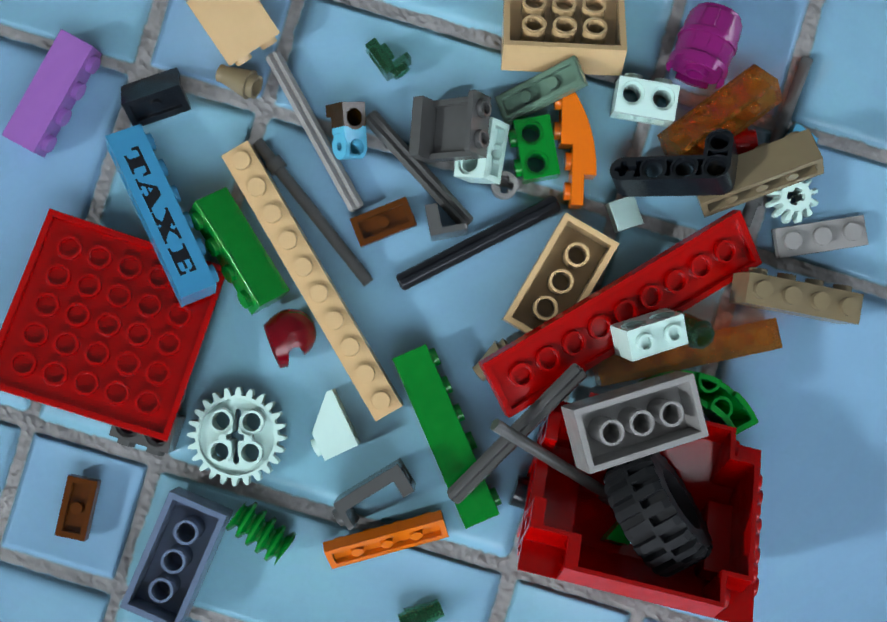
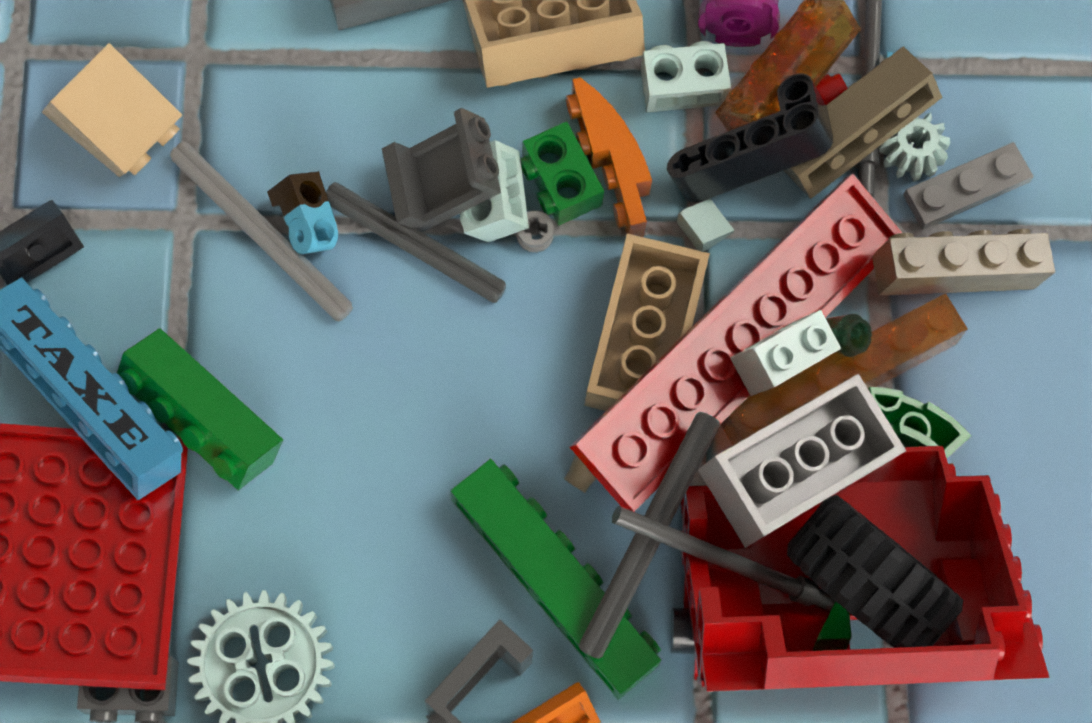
camera: 20 degrees left, 15 degrees down
(242, 81) = (145, 192): dark tan cone -> none
(276, 166) = (222, 289): dark grey bar -> none
(289, 330) = (292, 495): dark red helmet -> none
(312, 280) = (314, 423): tan brick -> none
(333, 429) = (395, 614): light aqua slope -> none
(382, 58) = (328, 115): clear green bracket -> none
(383, 222) = (386, 320): reddish brown plate -> none
(436, 230) = (465, 305): dark grey panel -> none
(478, 242) = (521, 314): black axle -> none
(541, 90) = (547, 96): sand green tile -> none

